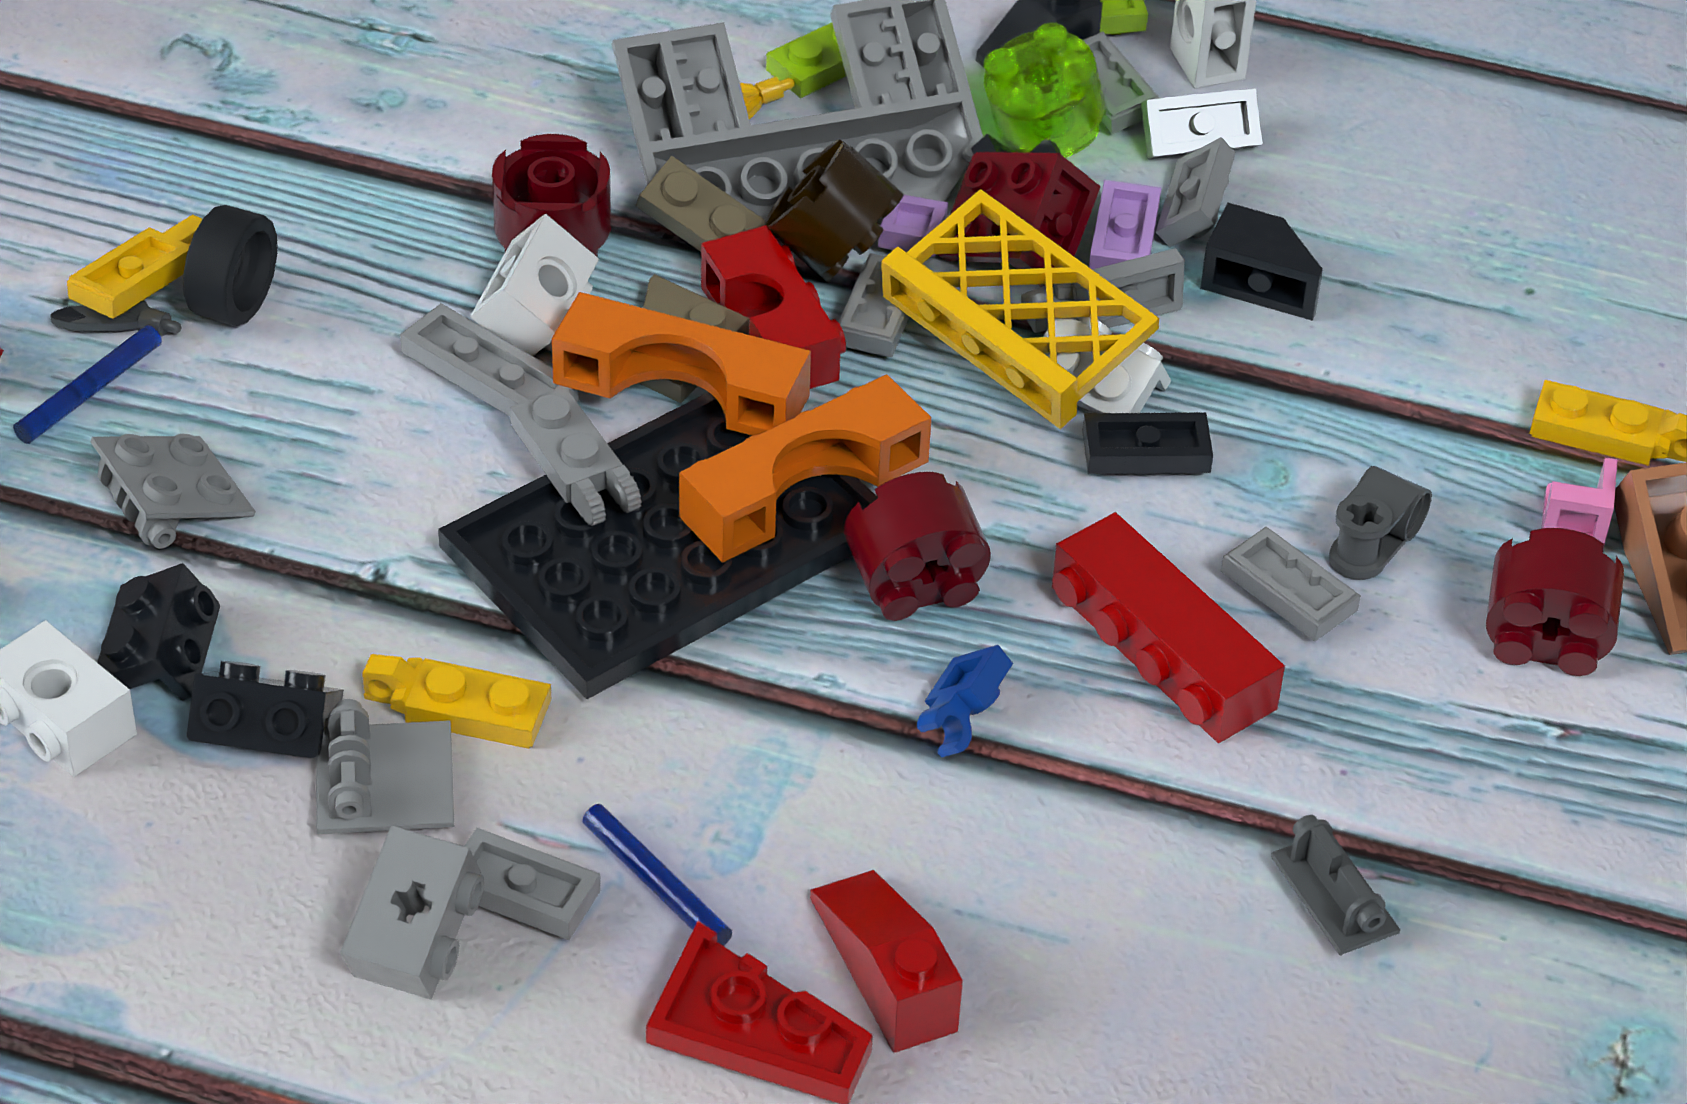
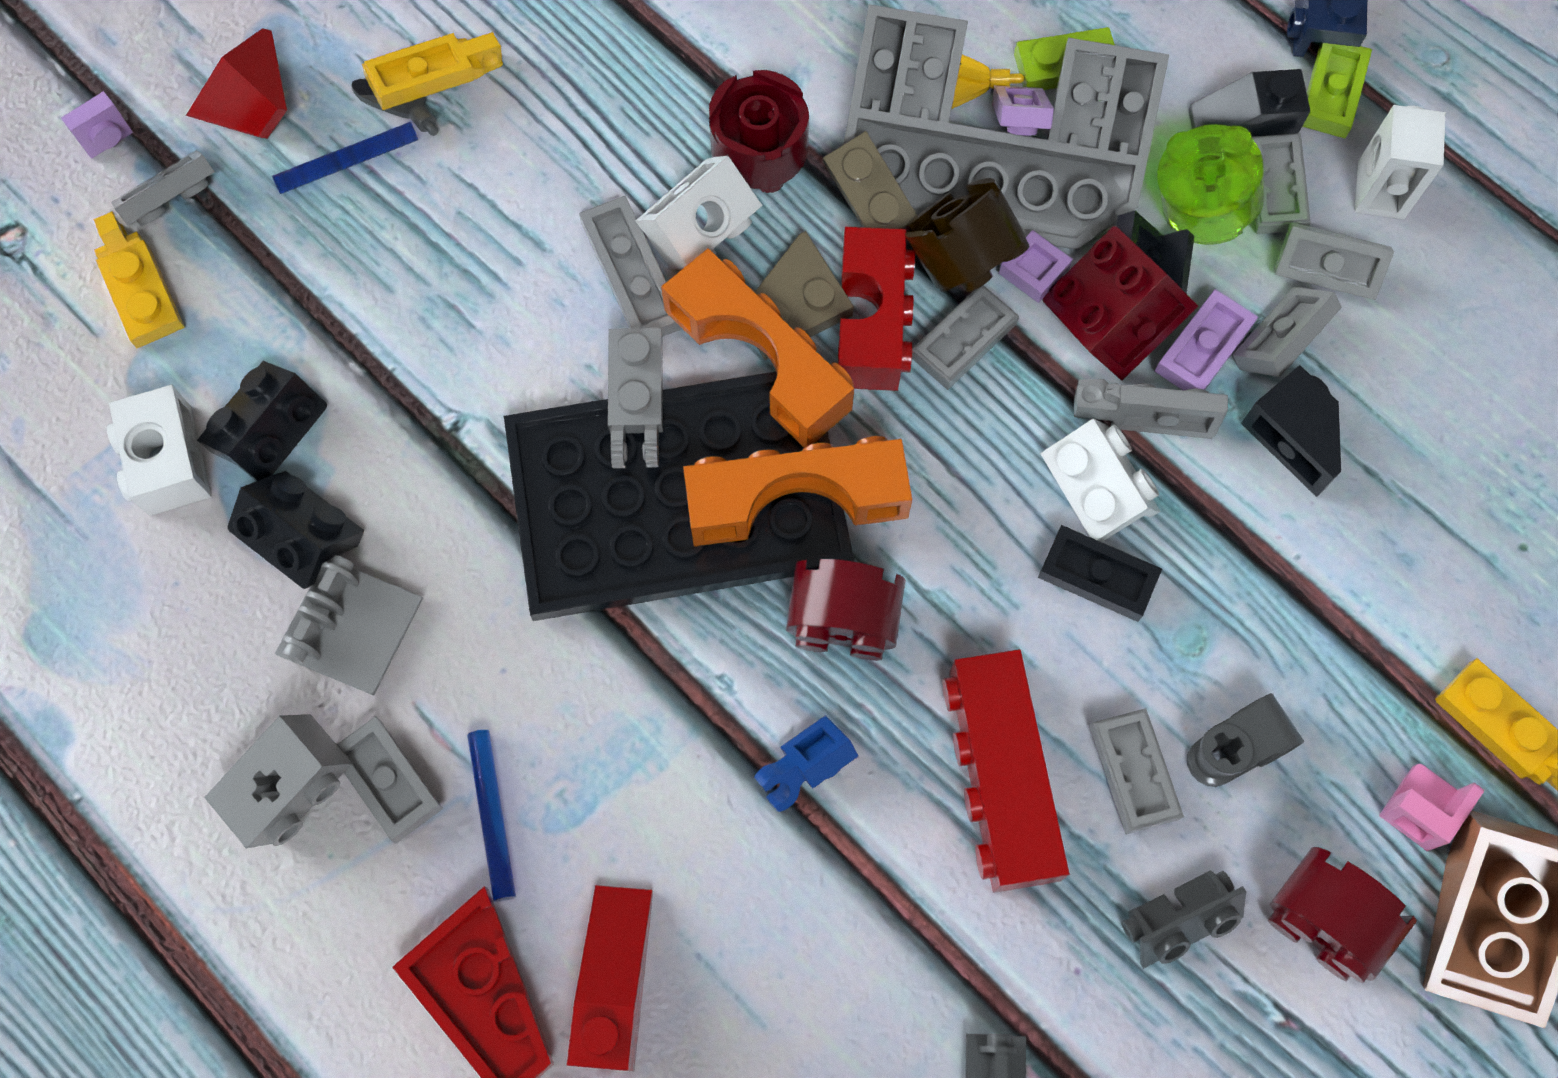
camera: 30 degrees right, 25 degrees up
(166, 480) = (346, 279): light grey hinge -> none
(230, 265) = (470, 82): black tyre -> none
(474, 699) = (444, 578): yellow hinge -> none
(815, 96) = (1022, 109): none -> lavender plate
(994, 346) = (1017, 418): yellow fence -> none
(1420, 679) = (1208, 909): none -> dark grey hinge

